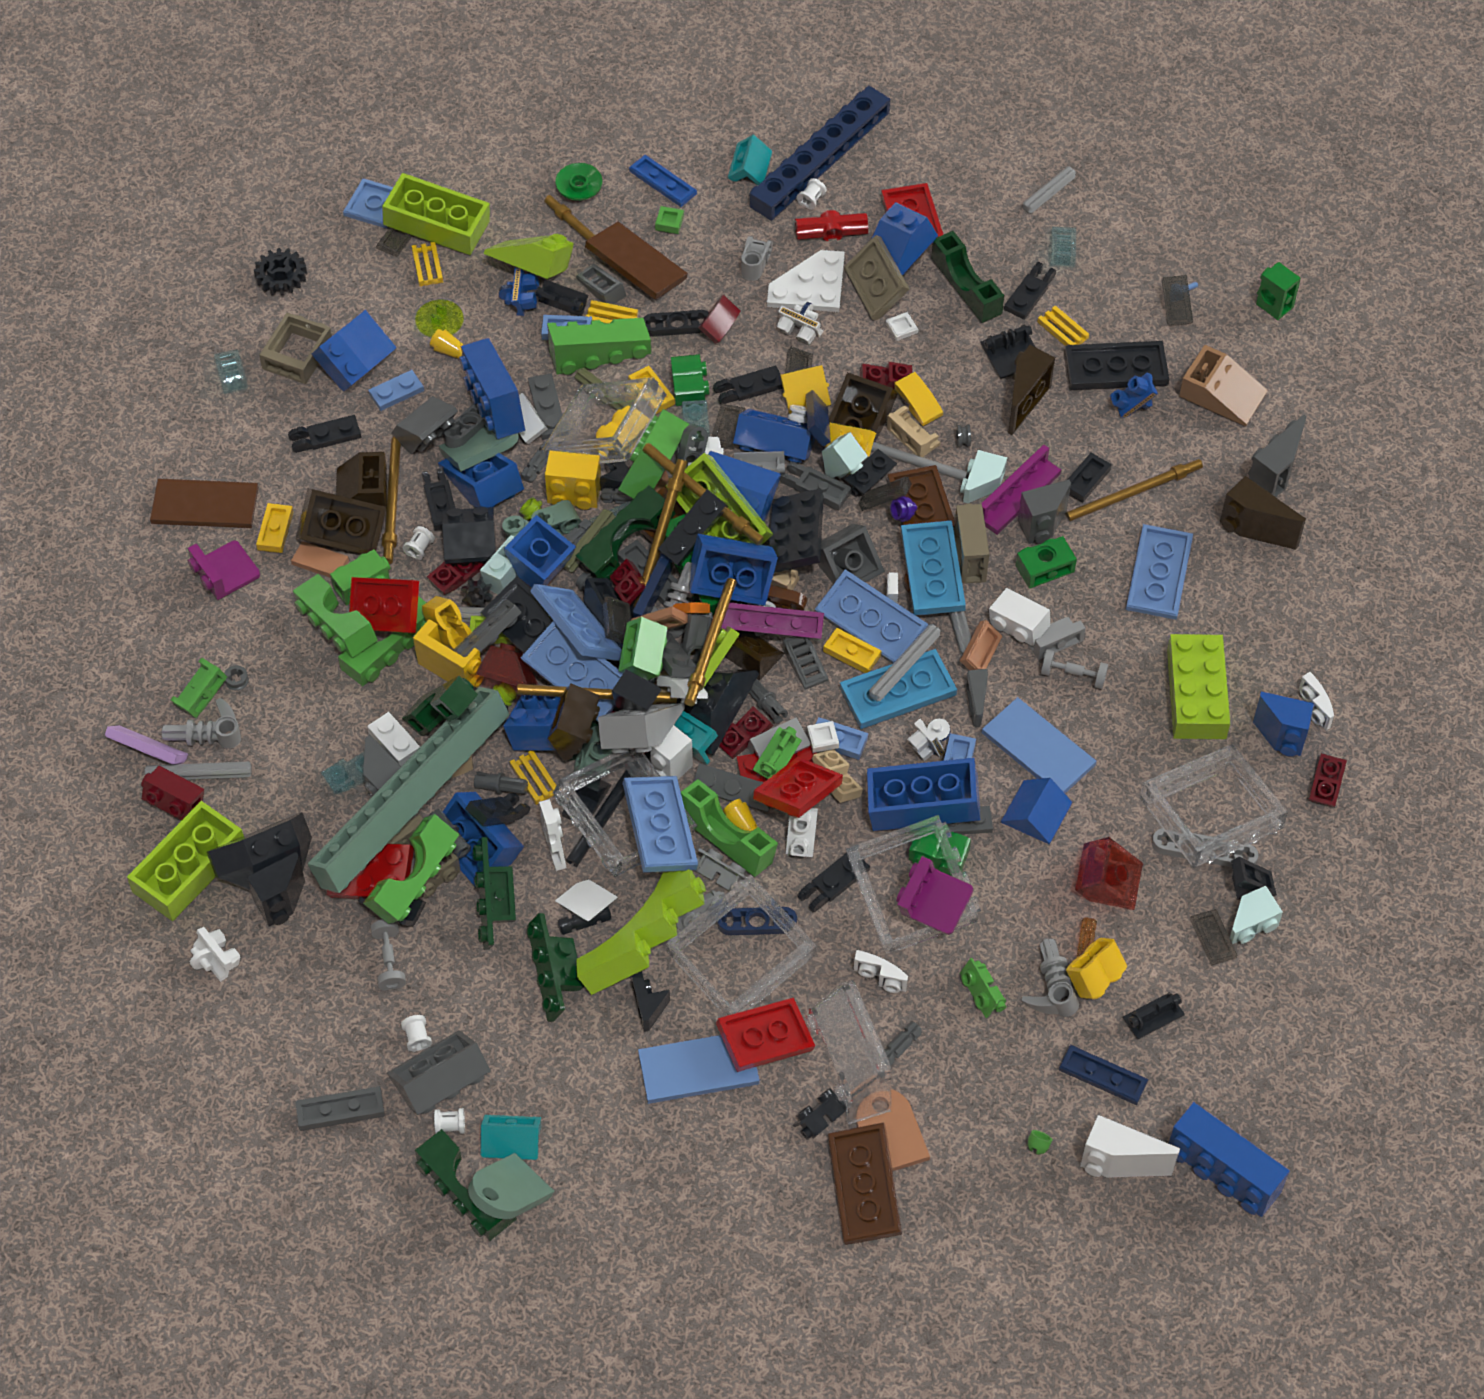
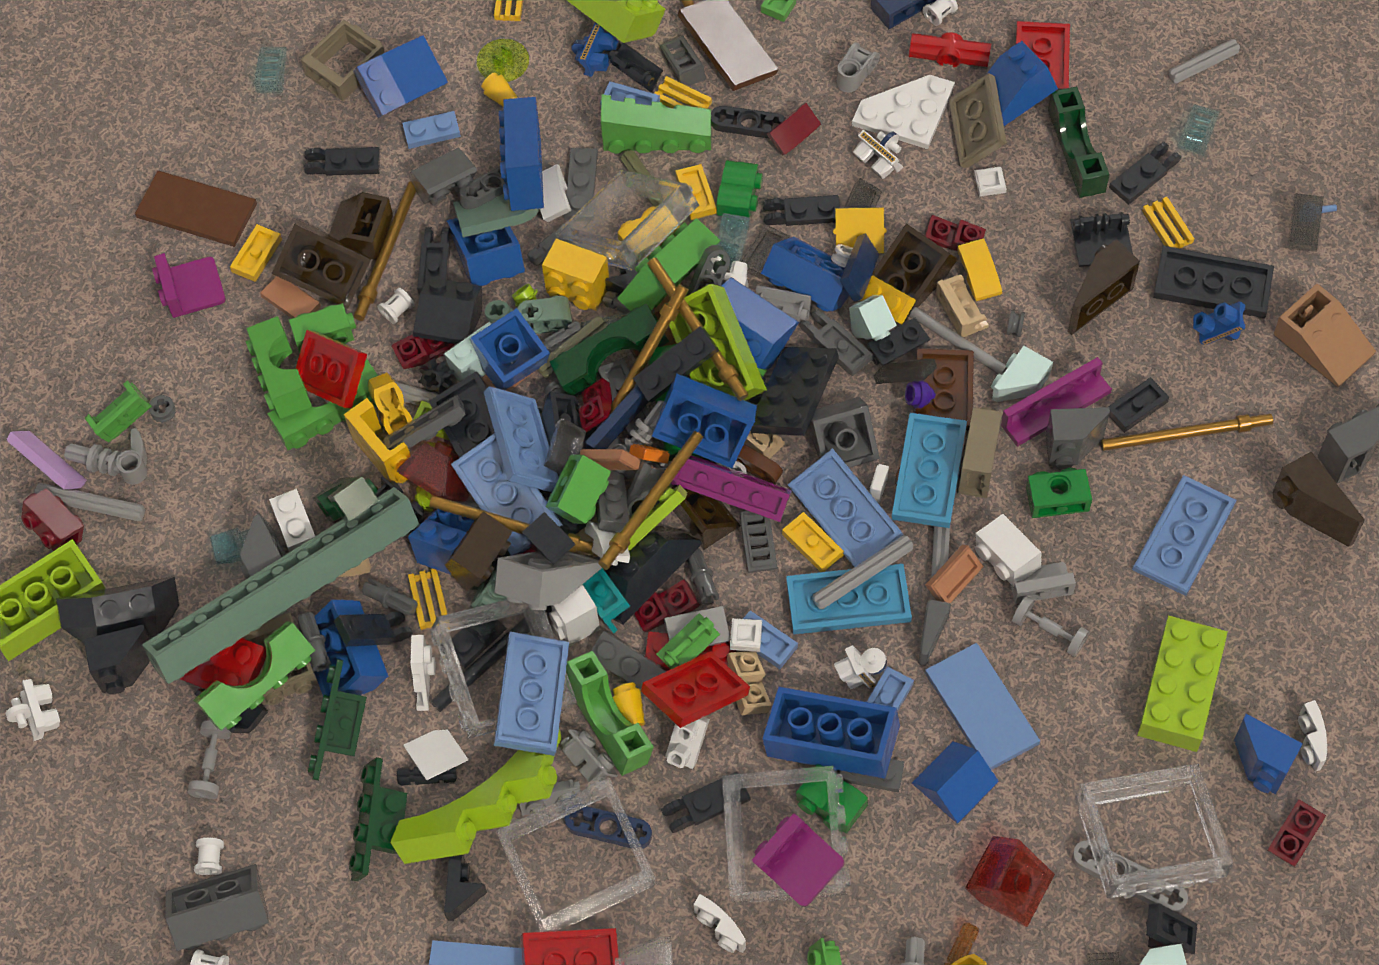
camera: 20 degrees right, 5 degrees up
(340, 1108) = (103, 919): dark grey plate -> none

